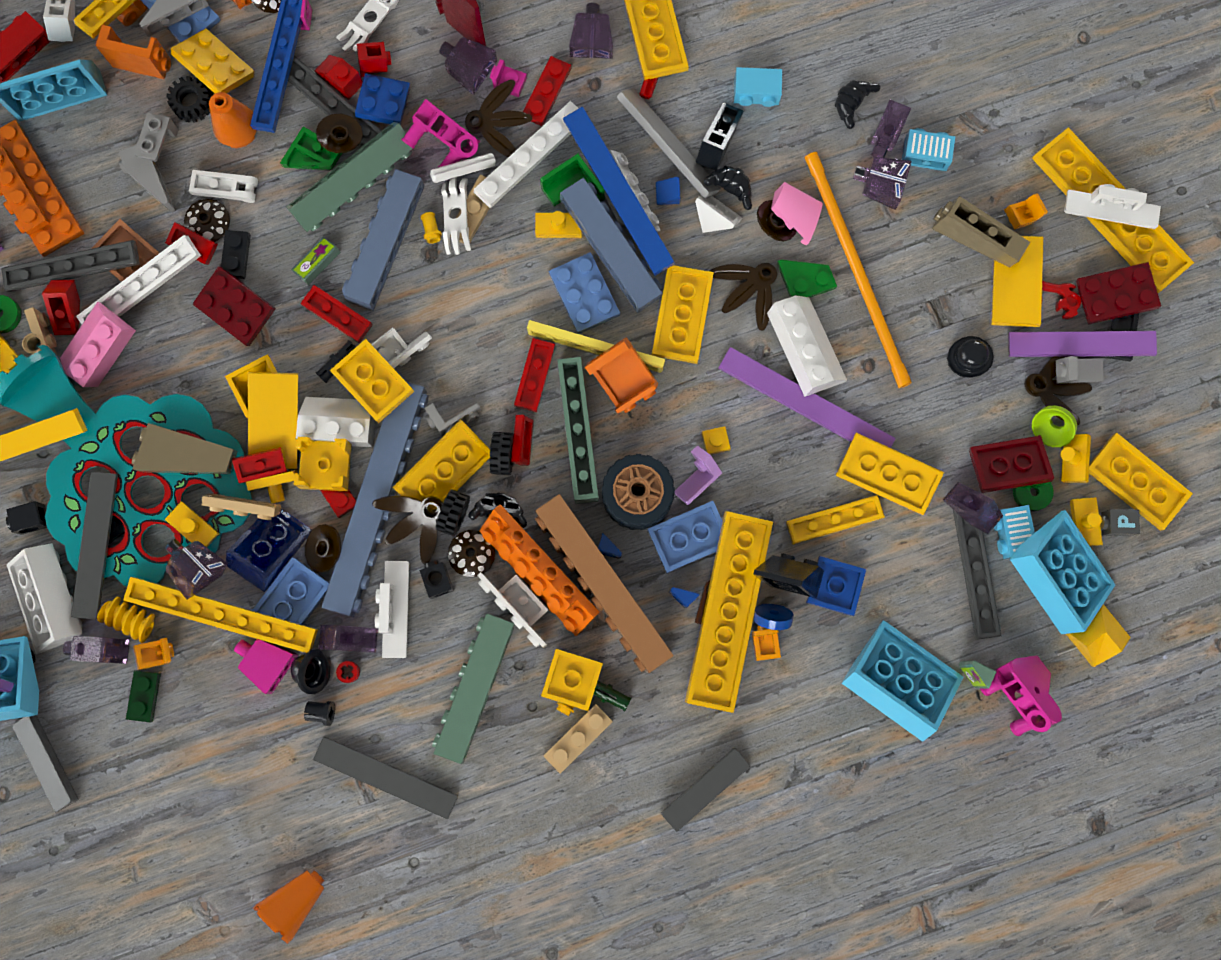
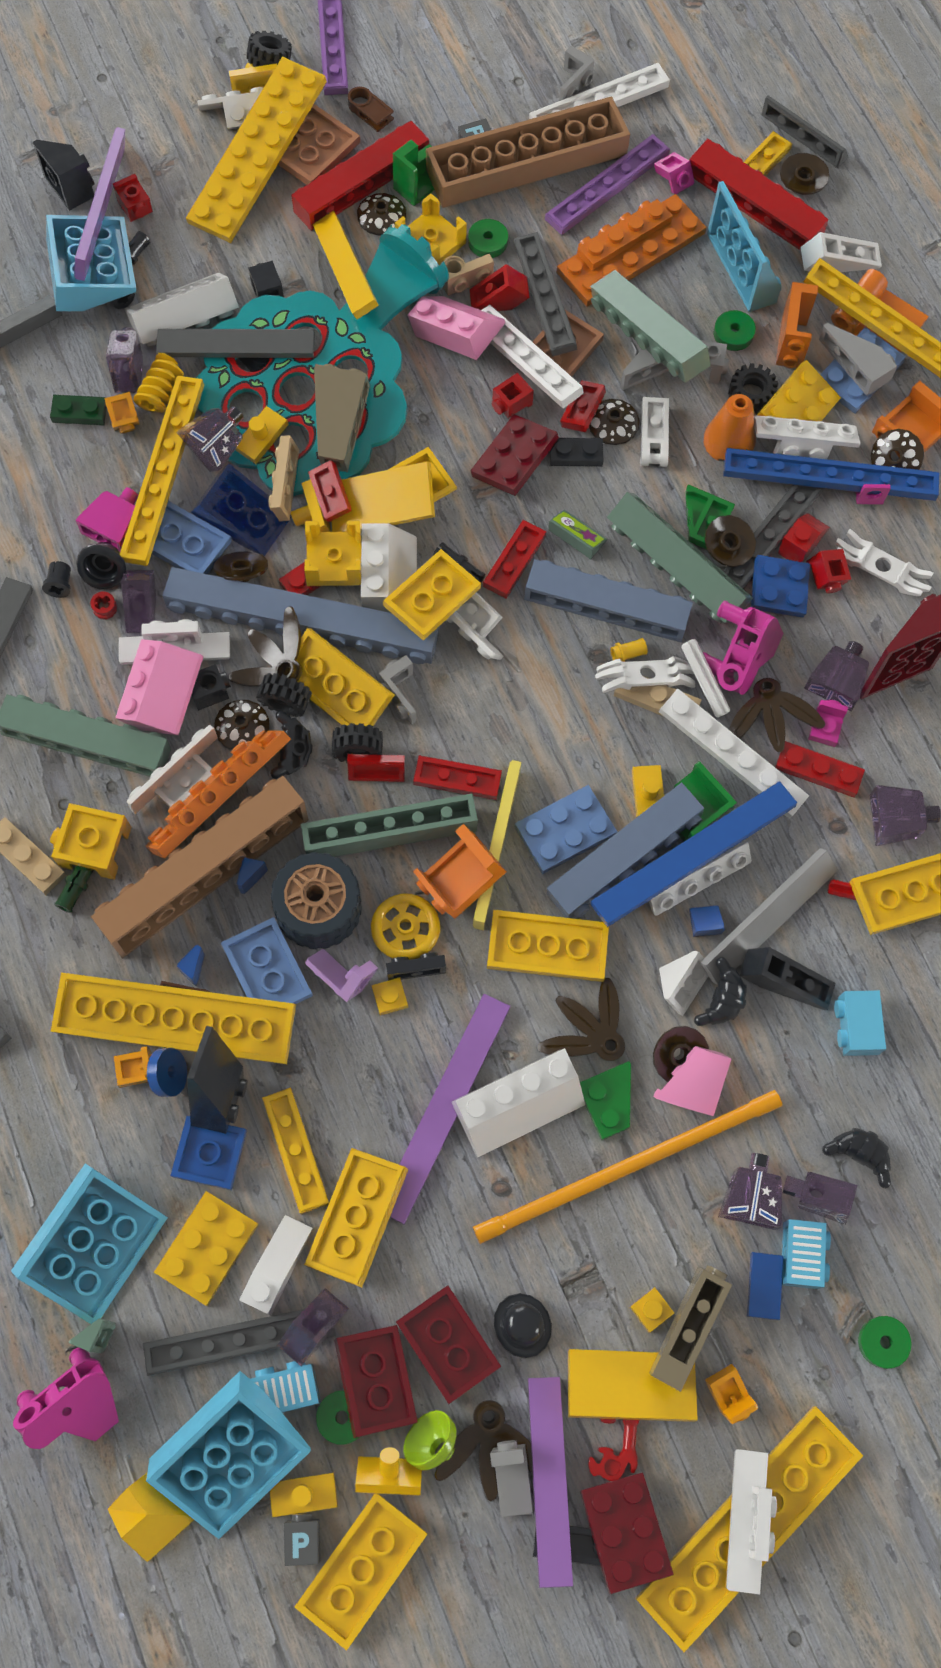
camera: 85 degrees right, 10 degrees down
(122, 174) = (650, 326): none -> brick
(133, 115) = (734, 320): none -> green piece
(170, 298) = (512, 396): none -> red brick
(247, 58) = (805, 437): none -> white bracket
(439, 618) = (159, 687): none -> bright pink slope
(676, 434) = (400, 903): none -> yellow plate
(693, 407) = (427, 965): none -> black plate
(907, 590) = (206, 1248): none -> yellow plate
(925, 536) = (276, 1265): none -> white slope
(948, 181) = (765, 1286): none -> blue tile
(962, 263) = (651, 1310): none -> yellow plate
(984, 410) = (448, 1344): none -> dark red plate
(991, 94) = (899, 1342): none -> green piece

